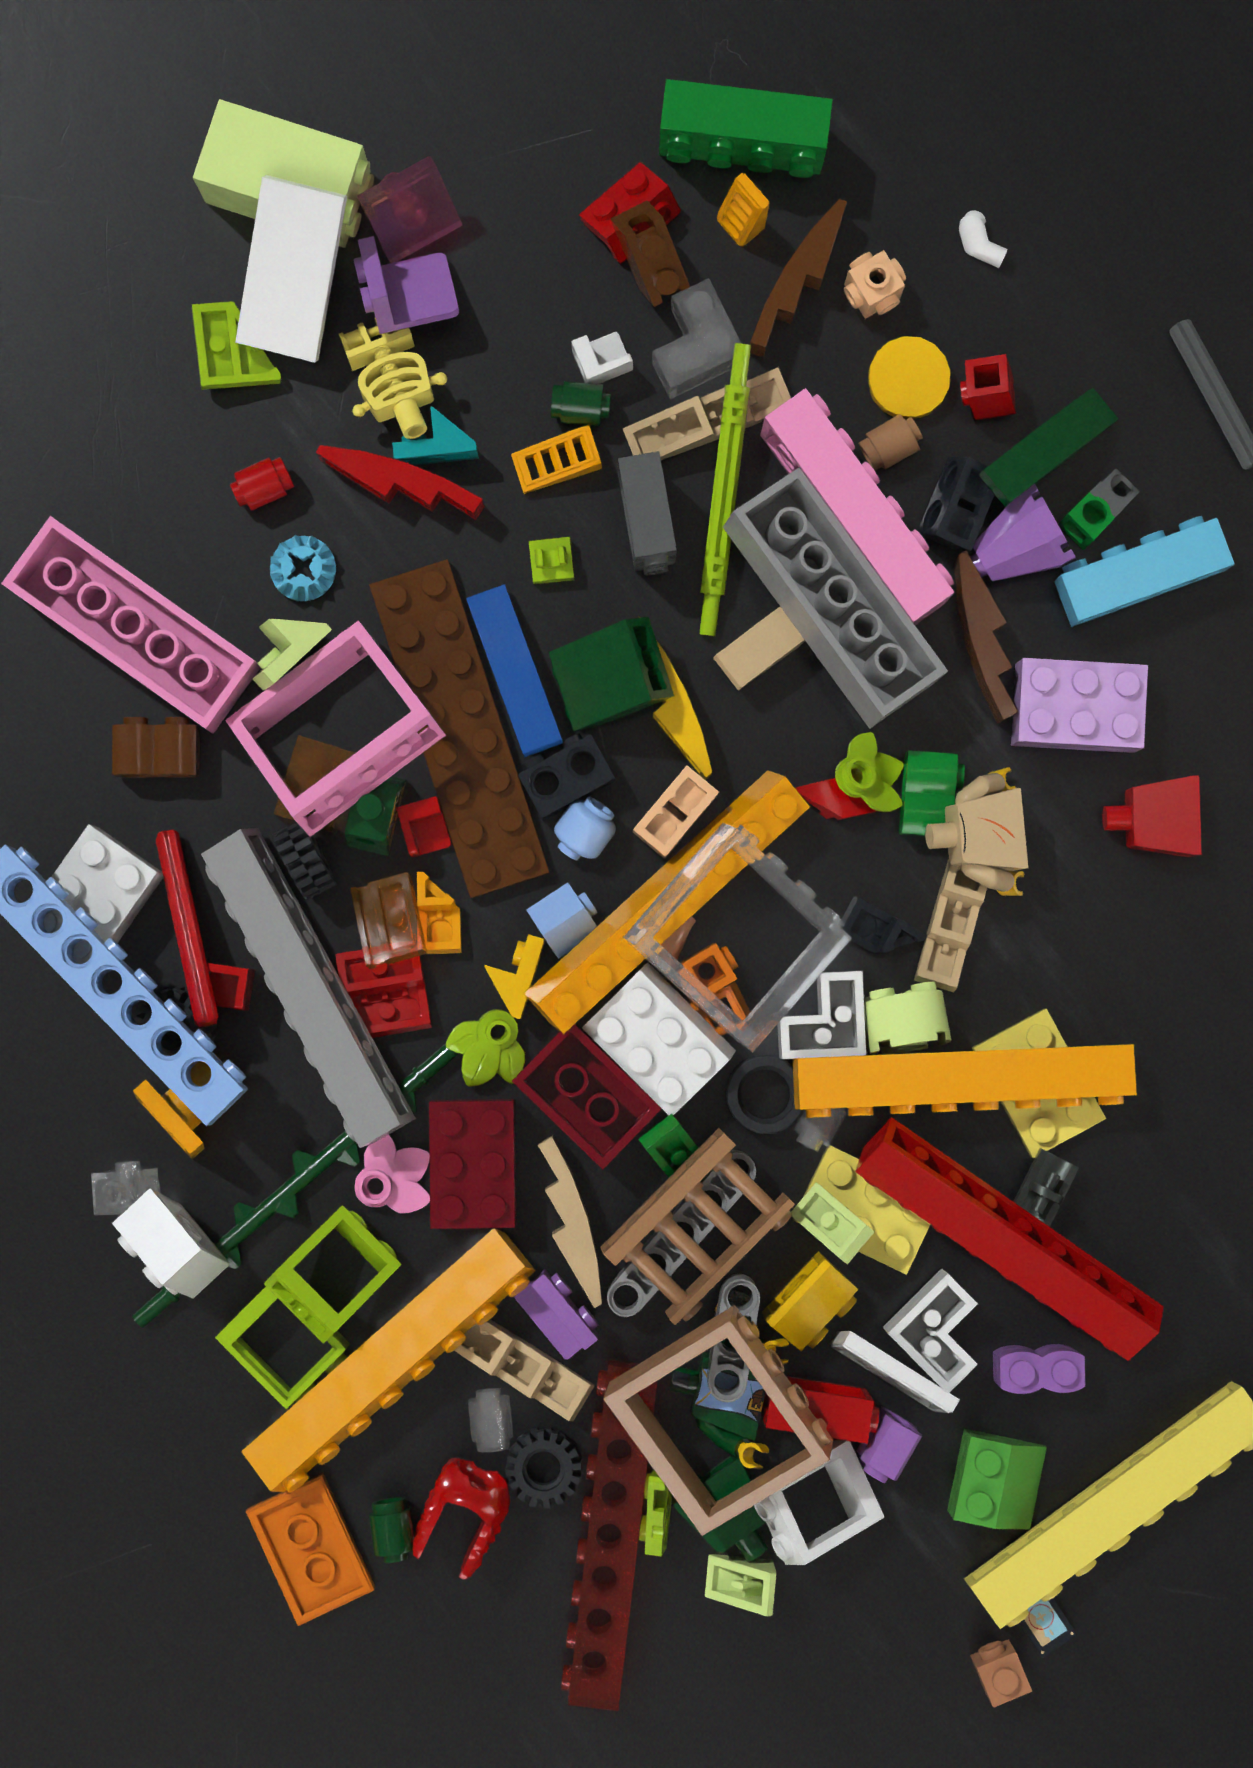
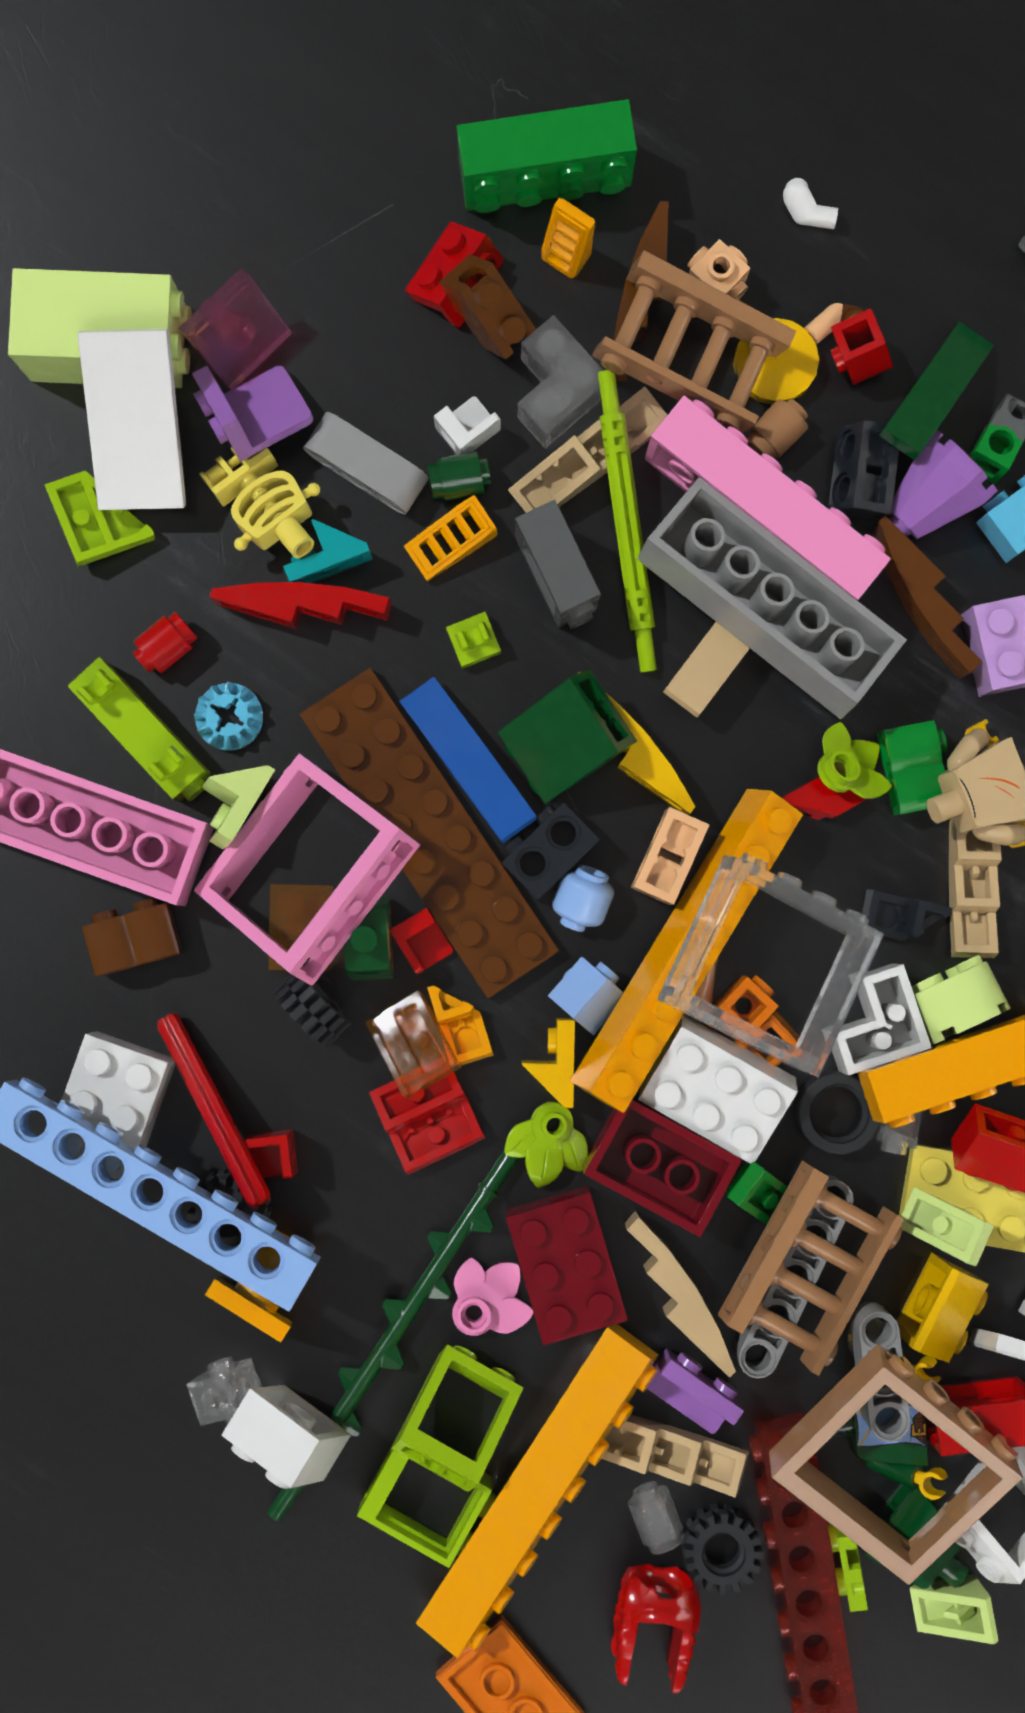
camera: 15 degrees left, 0 degrees up
(217, 559) = (140, 731): none -> lime brick
(307, 987) = (351, 1135): light grey brick -> none
(392, 1529) = (588, 1655): dark green brick -> none
(496, 367) = (365, 463): none -> light grey beam
(839, 300) = (727, 318): none -> medium nougat fence
(971, 350) = (833, 314): none -> light nougat arm

